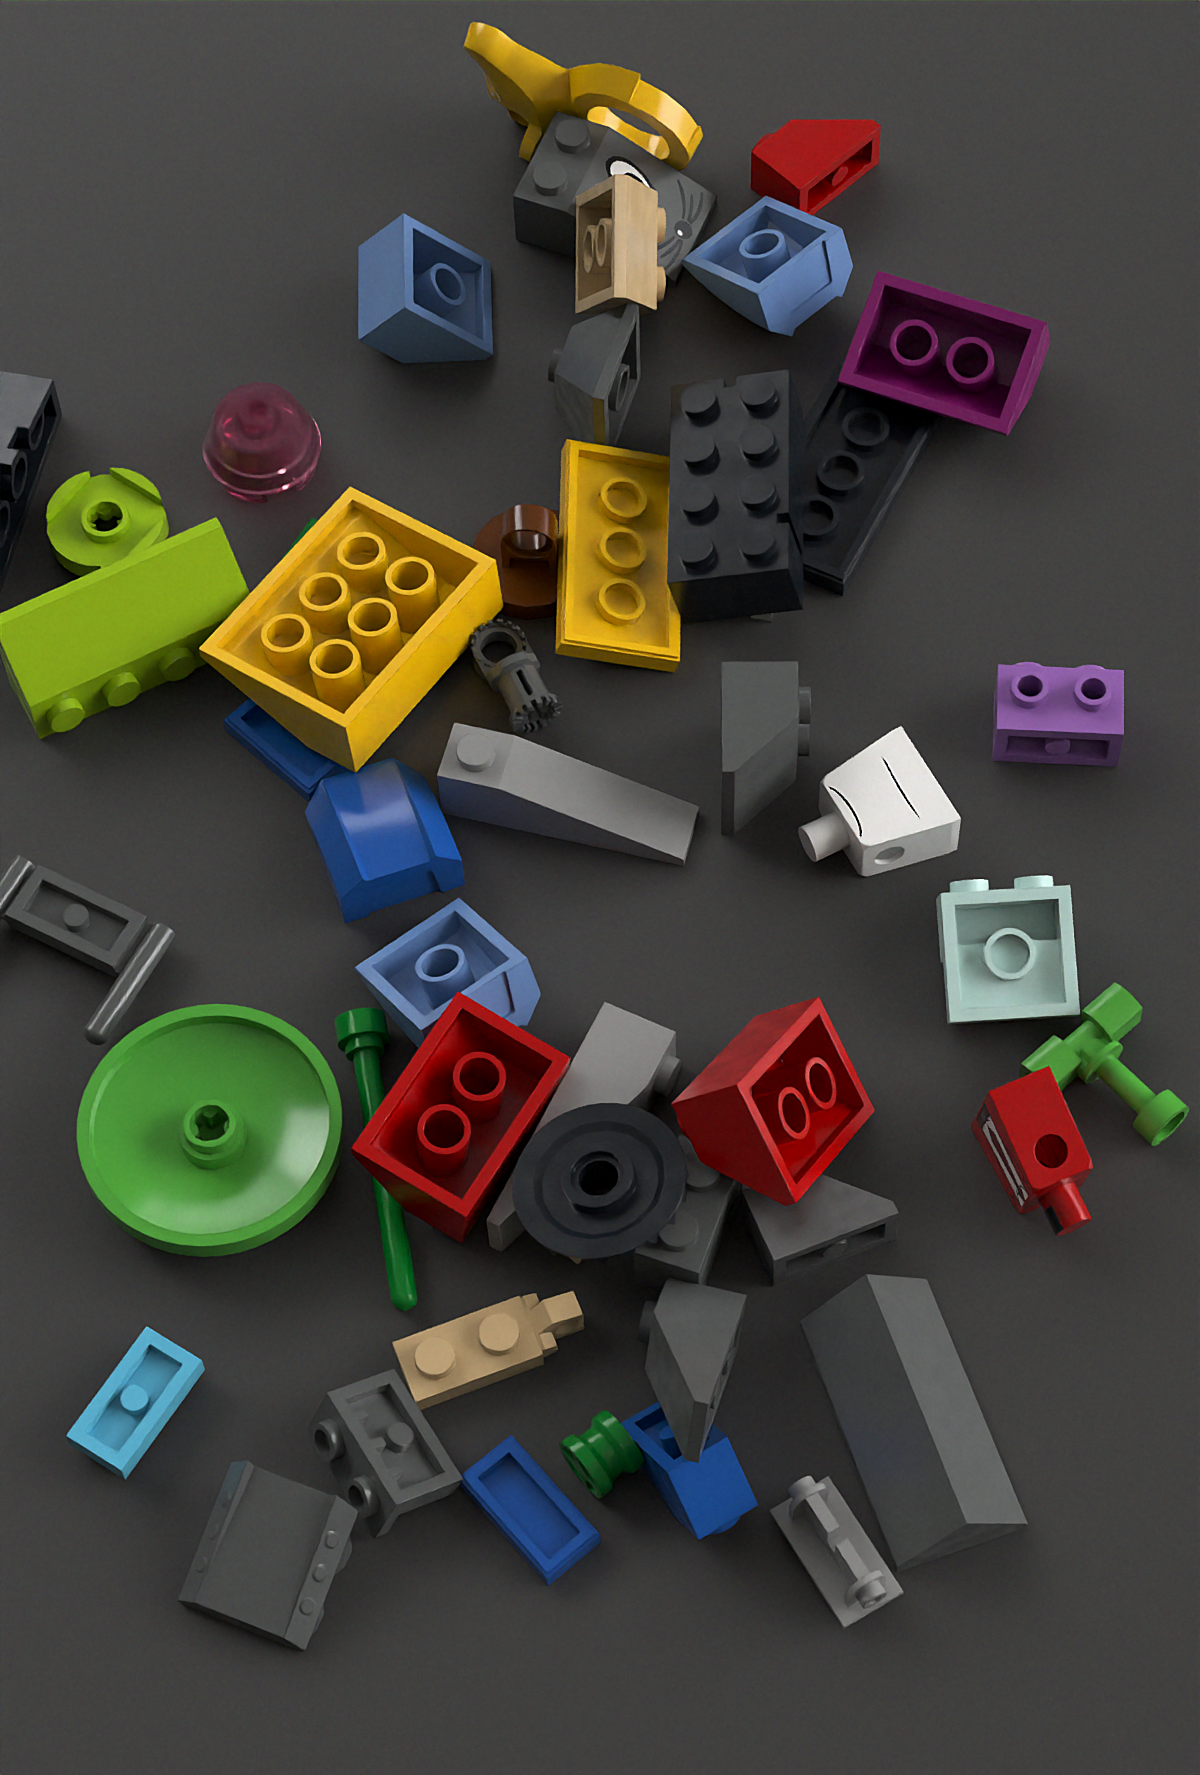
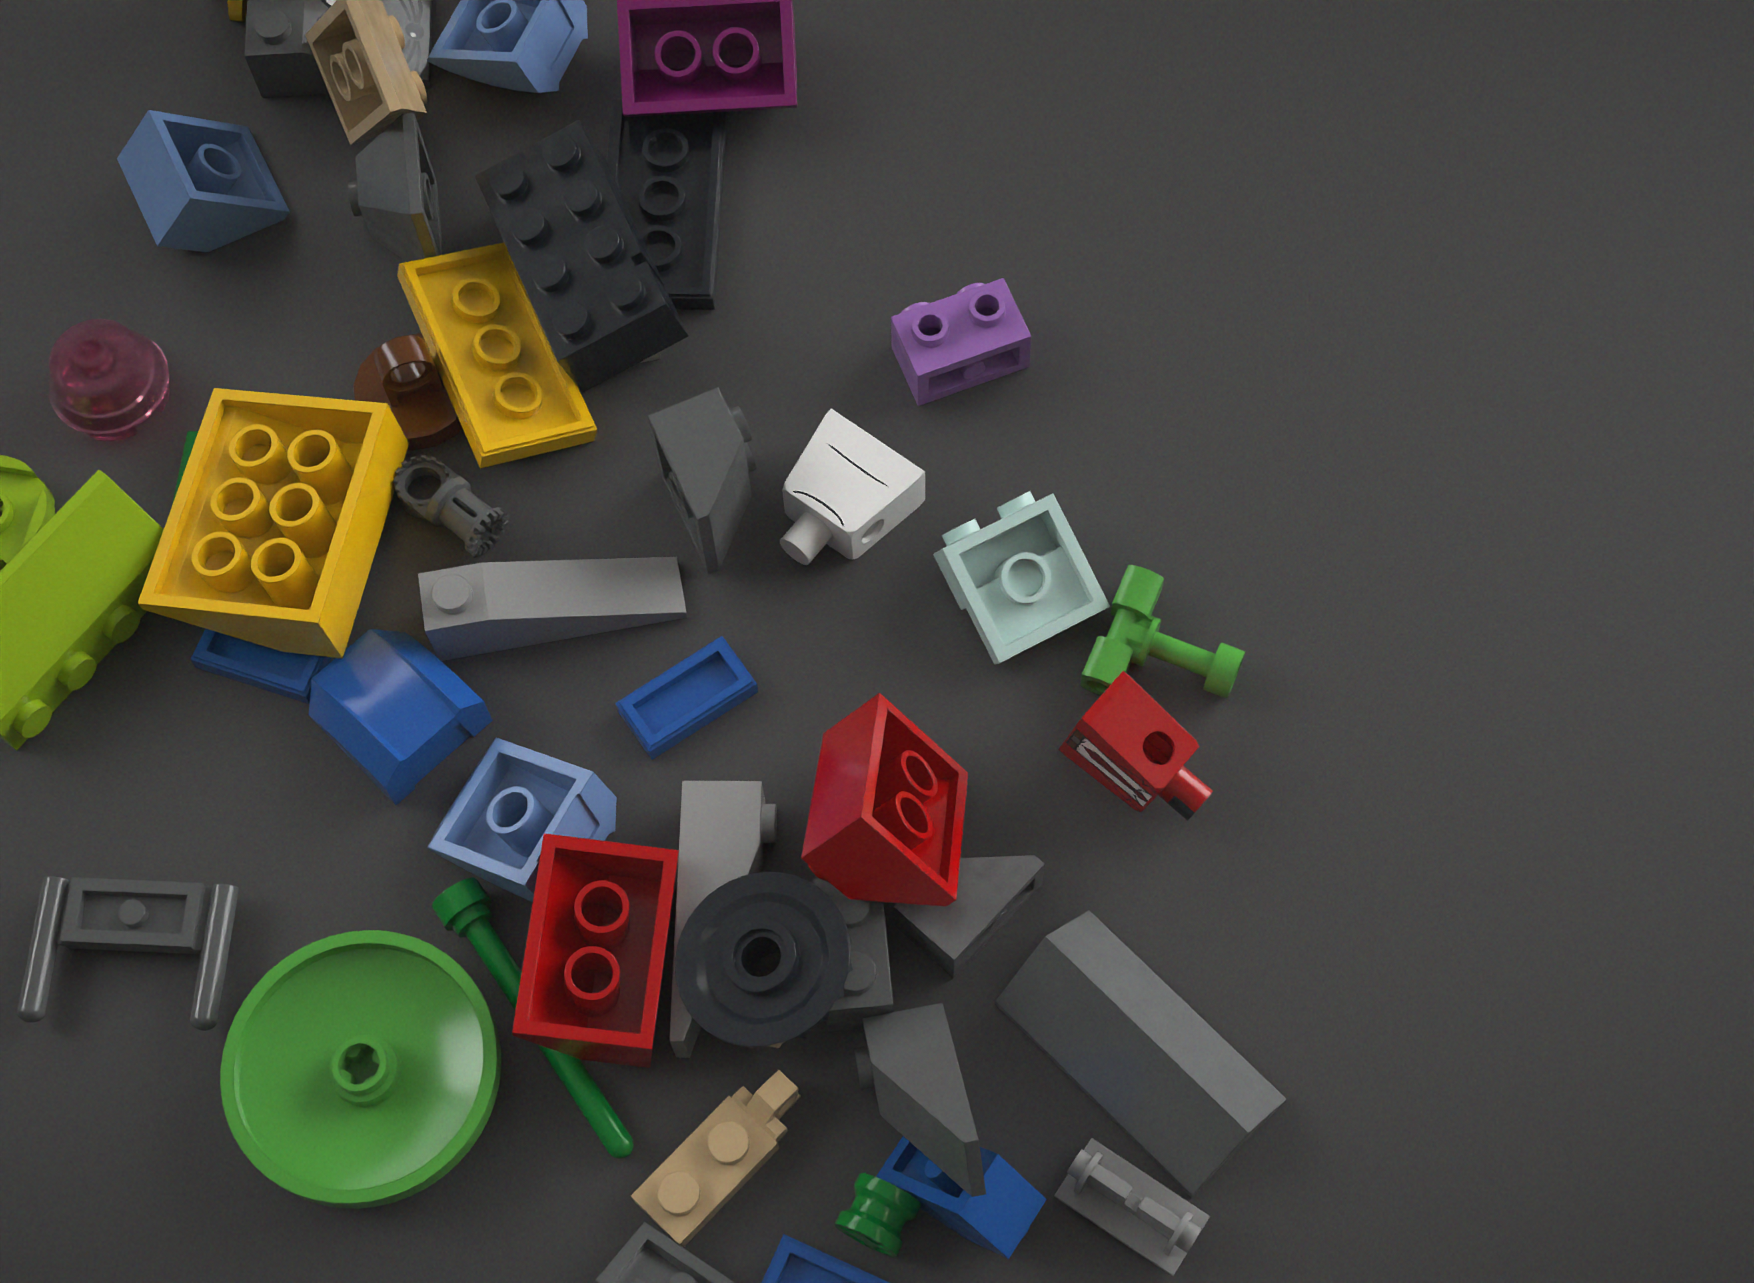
camera: 25 degrees left, 5 degrees up
(648, 935) = (687, 697): none -> blue tile

